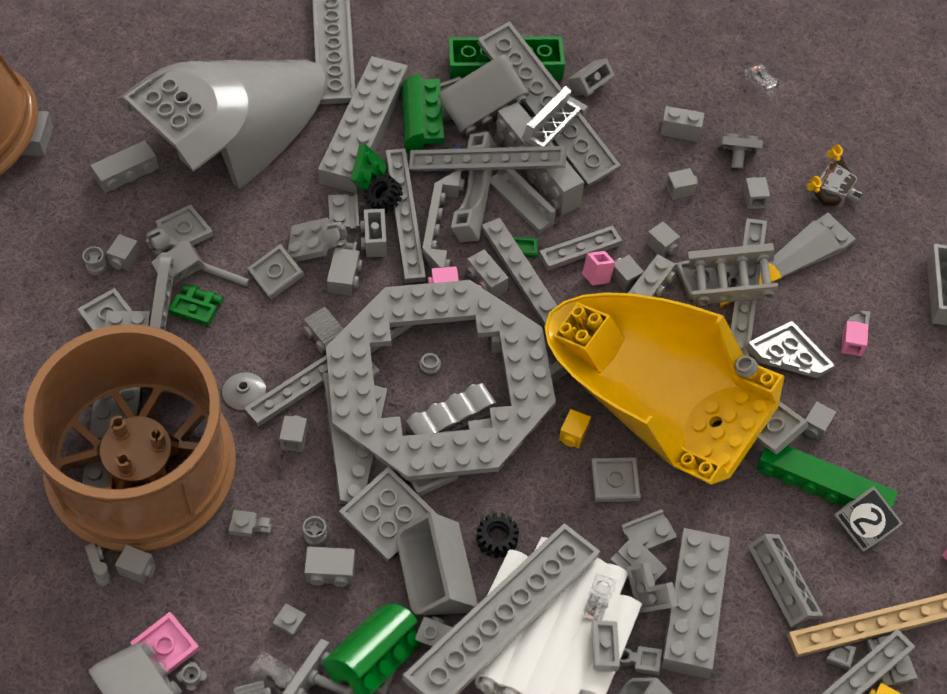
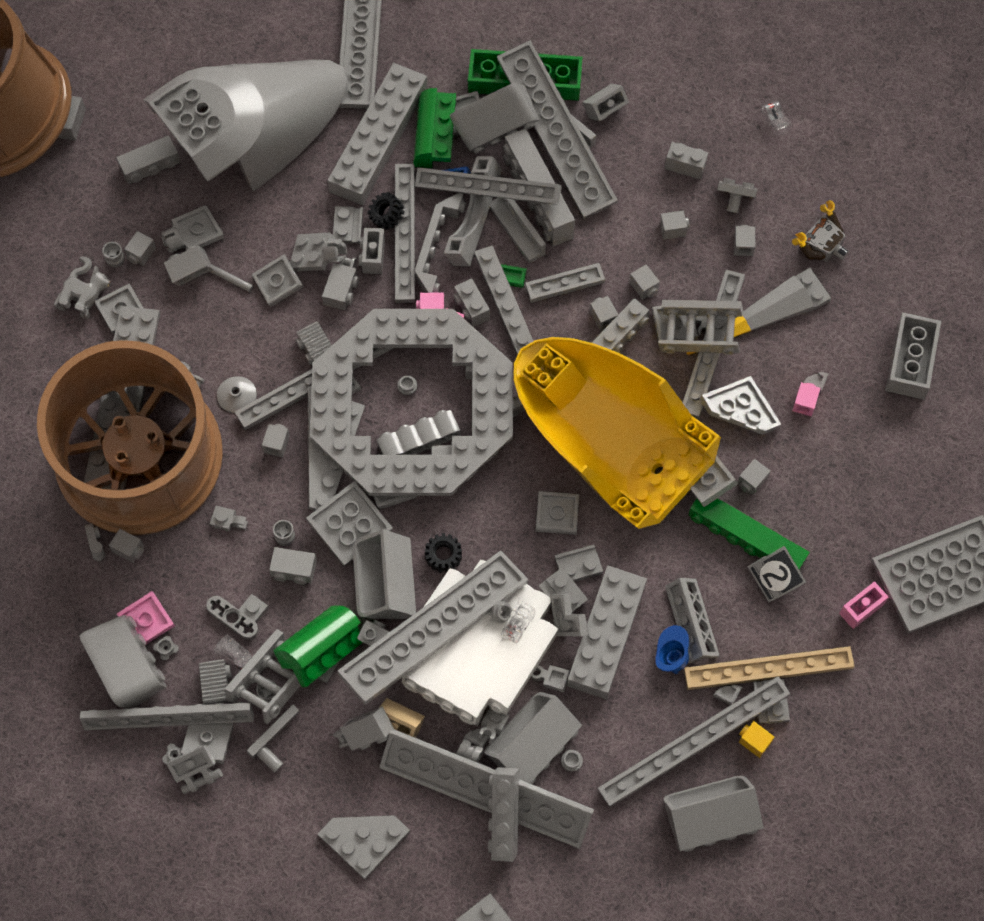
camera: 10 degrees right, 10 degrees up
(62, 301) = (82, 292): none -> light grey animal
(162, 293) = (170, 298): light grey beam -> none
(195, 310) = (198, 311): green plate -> none
(284, 635) = (248, 622): none -> light grey beam
(366, 166) = (373, 180): green plate -> none
(546, 117) = (547, 148): light grey fence -> none
(574, 429) = (528, 461): yellow brick -> none
(578, 589) = (507, 610): none -> light grey plate
(598, 268) = (576, 306): bright pink brick -> none
(605, 645) = (516, 663): light grey plate -> none
(746, 366) = (688, 423): light grey plate -> none
(773, 612) = (672, 649): none -> blue piece

